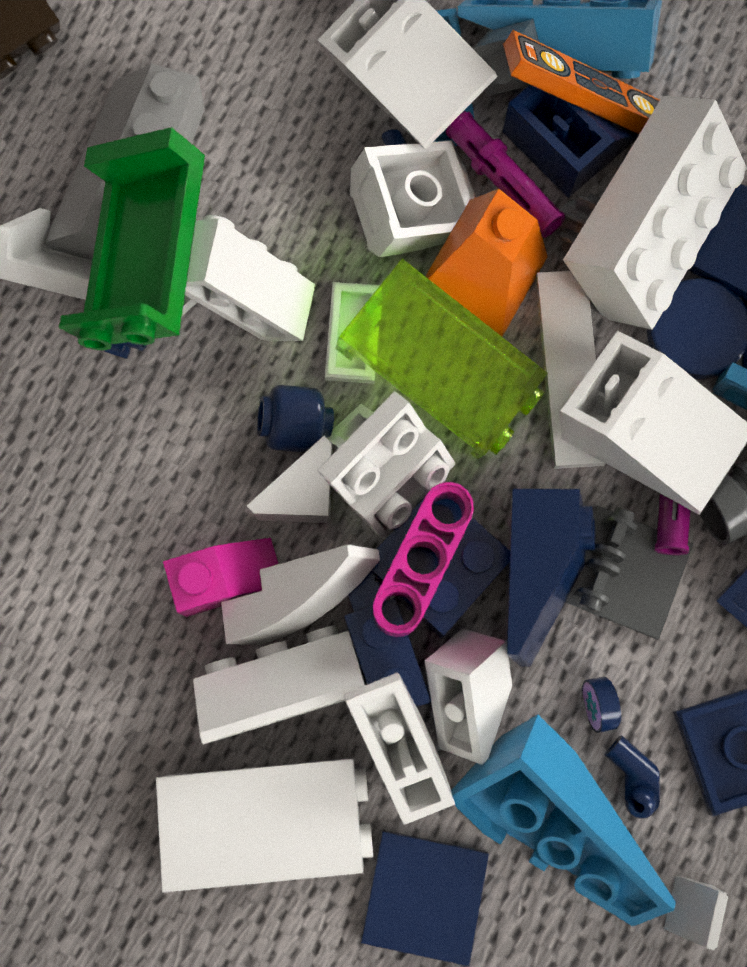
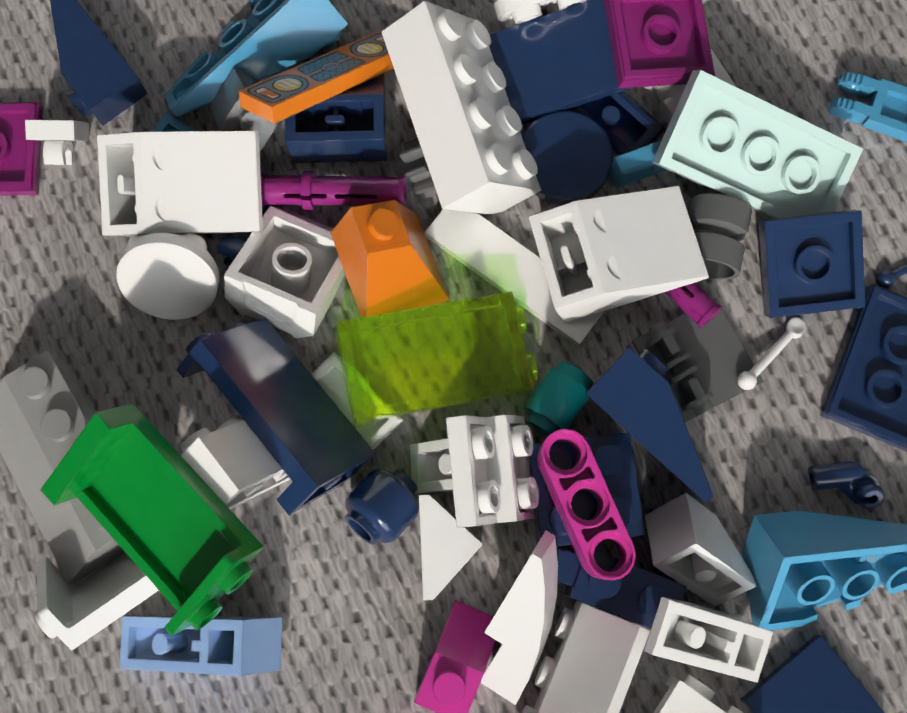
camera: 55 degrees left, 0 degrees up
(81, 378) = (221, 647): none -> light blue slope
(300, 278) = (281, 407): none -> dark blue panel
(330, 113) = (168, 275): none -> white tile
(493, 482) = (558, 399): none -> teal brick
(601, 704) = (779, 462): dark blue tile -> none
(726, 631) = (794, 329): none -> white hinge

